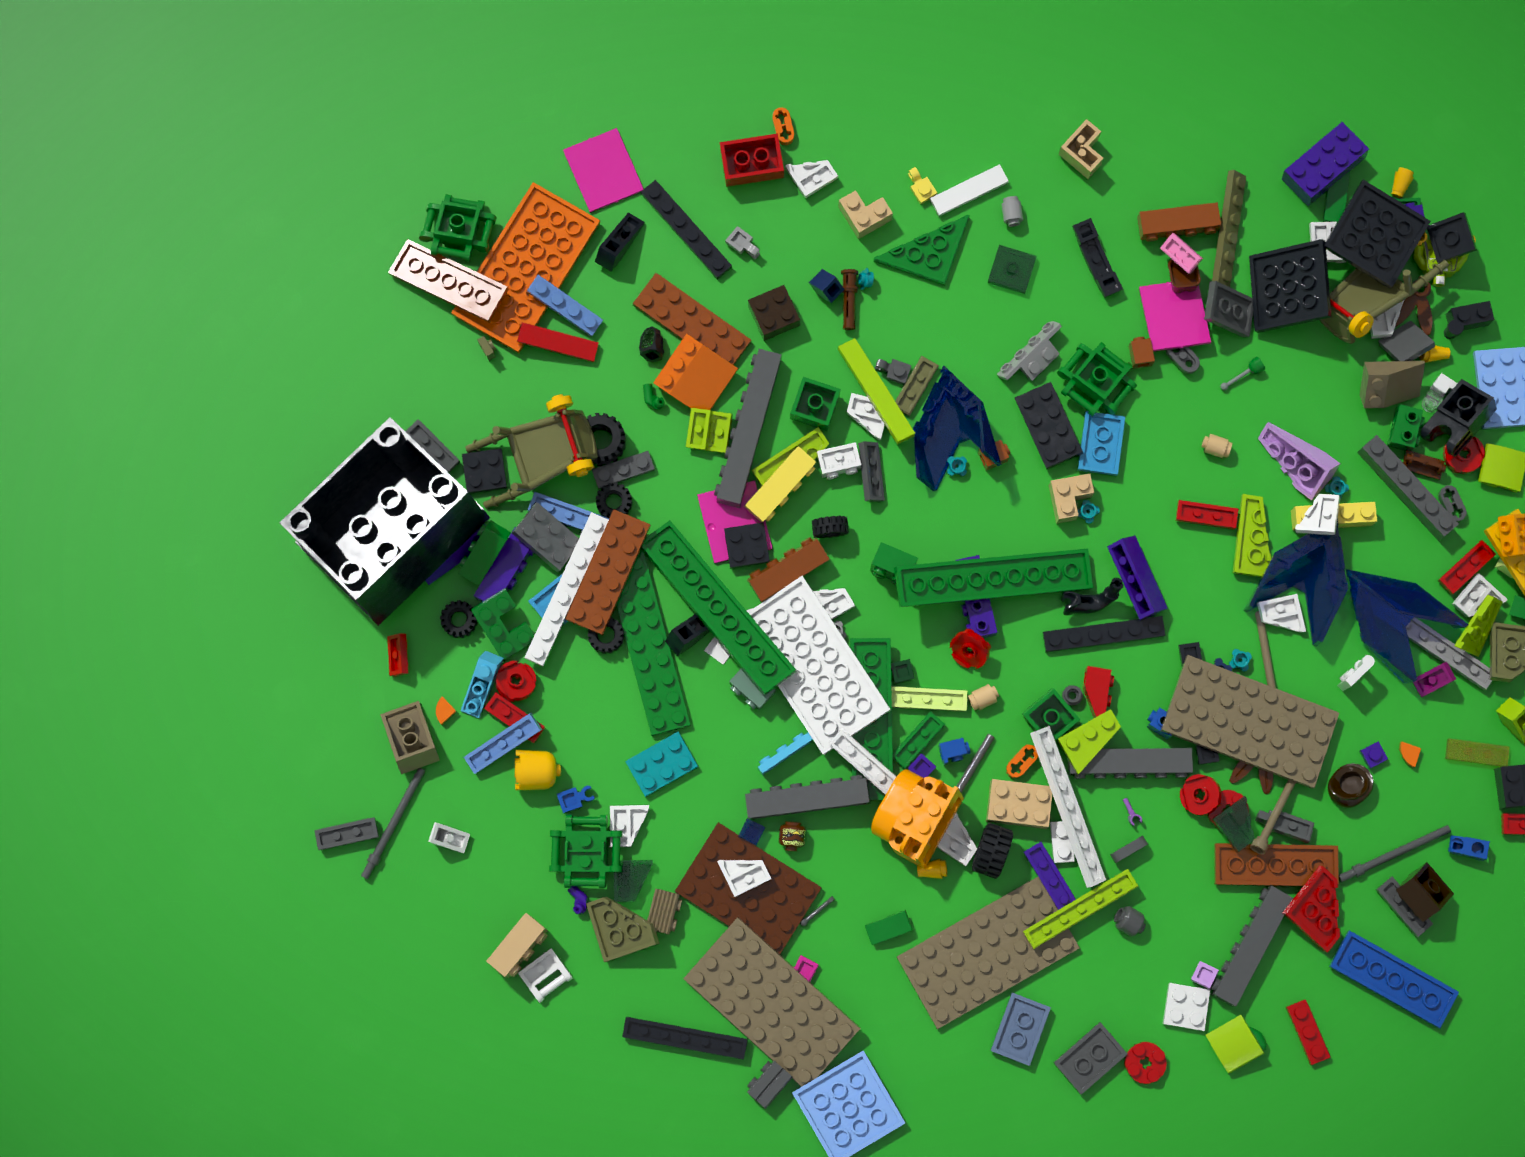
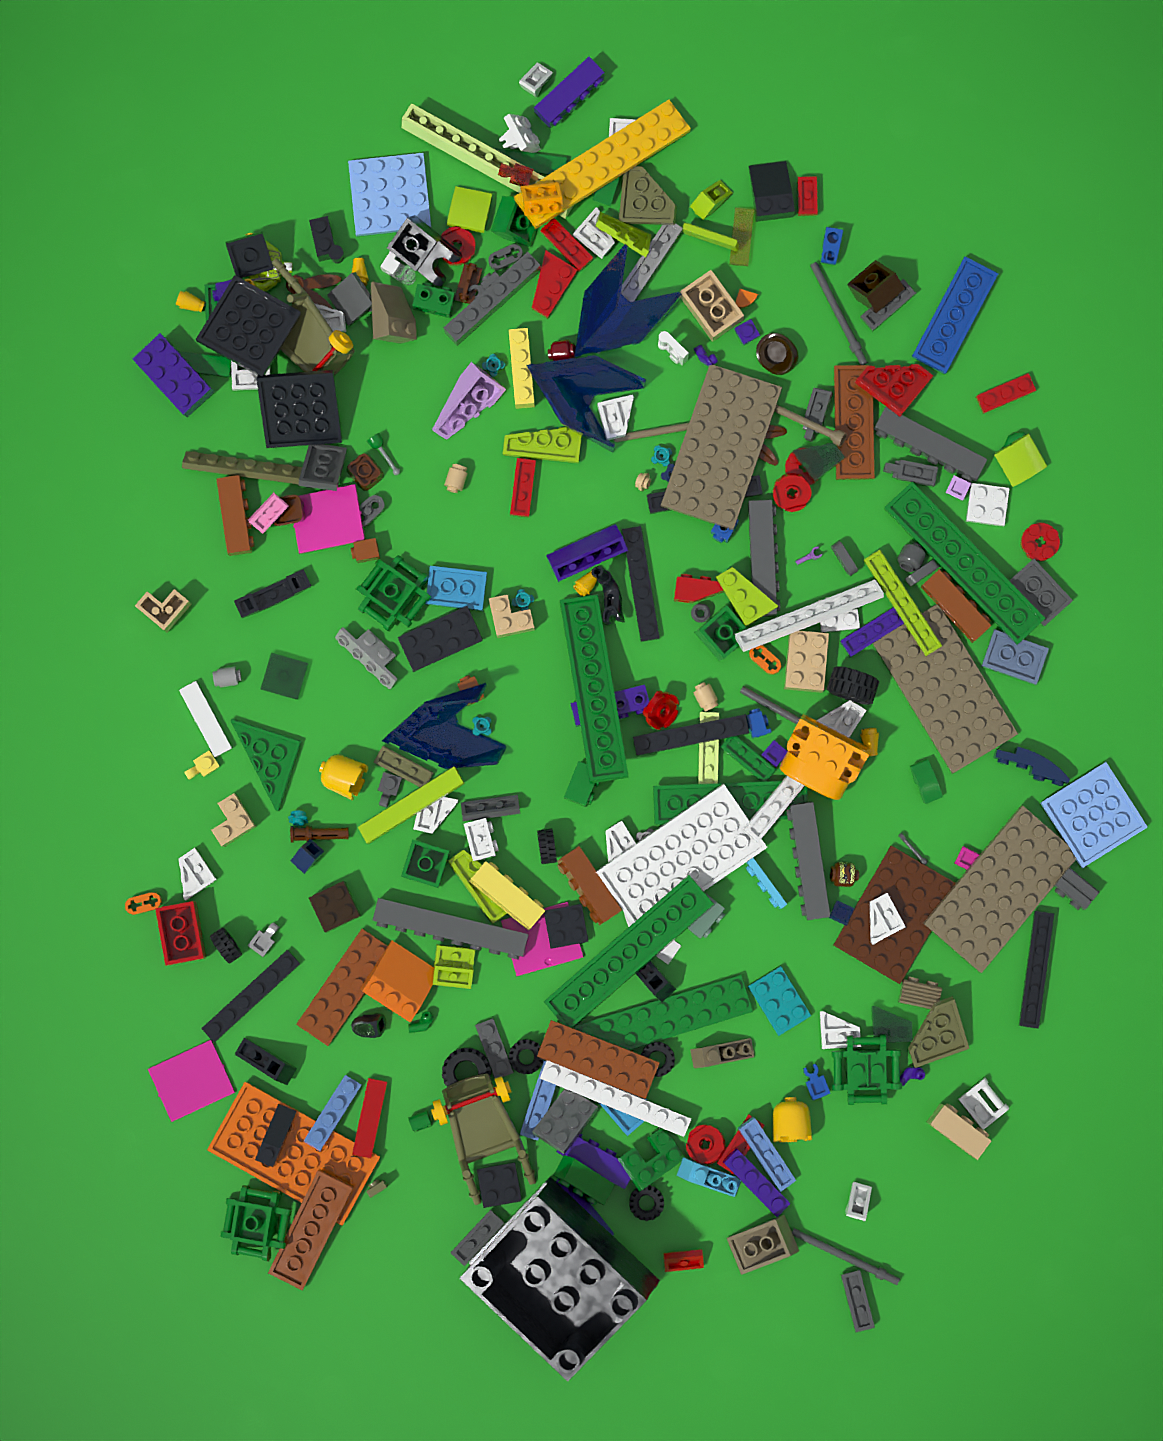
camera: 90 degrees left, 5 degrees up
(444, 710) = (735, 1212): orange tile -> none
(474, 732) = (756, 1182): none -> dark purple plate
(543, 247) = (275, 1135): none -> black slope
(550, 390) = (420, 1121): none -> green brick
(609, 702) = (722, 1053): none -> dark tan slope
(738, 203) = (226, 945): none -> black tyre
(899, 1051) = (1039, 766): none -> dark blue slope
(902, 671) = (683, 774): dark green plate -> none
(908, 323) = (343, 775): none -> yellow cylinder
(943, 680) = (691, 735): none -> black plate
(1077, 966) = (956, 606): none -> dark orange brick
(1103, 575) = (585, 584): none -> yellow cone
(1112, 932) = (922, 572): none -> dark grey beam
(1122, 978) = (964, 563): none -> green plate
(1212, 639) = (643, 481): none -> tan plate
(1221, 926) = (912, 472): none -> dark grey hinge
(1224, 355) = (365, 472): none -> reddish brown piece
(1321, 516) = (526, 380): white wing -> none
(1347, 707) = (703, 357): none -> dark purple arm
(1353, 557) = (561, 350): none -> dark red head
(1402, 716) = (711, 305): none -> tan brick
(1423, 551) = (552, 283): none -> red wing
(1427, 482) = (487, 281): none -> dark grey plate
(1434, 679) = (674, 274): magenta slope -> none
(1476, 719) = (710, 236): none -> lime tile
(1486, 510) = (512, 223): none -> green slope

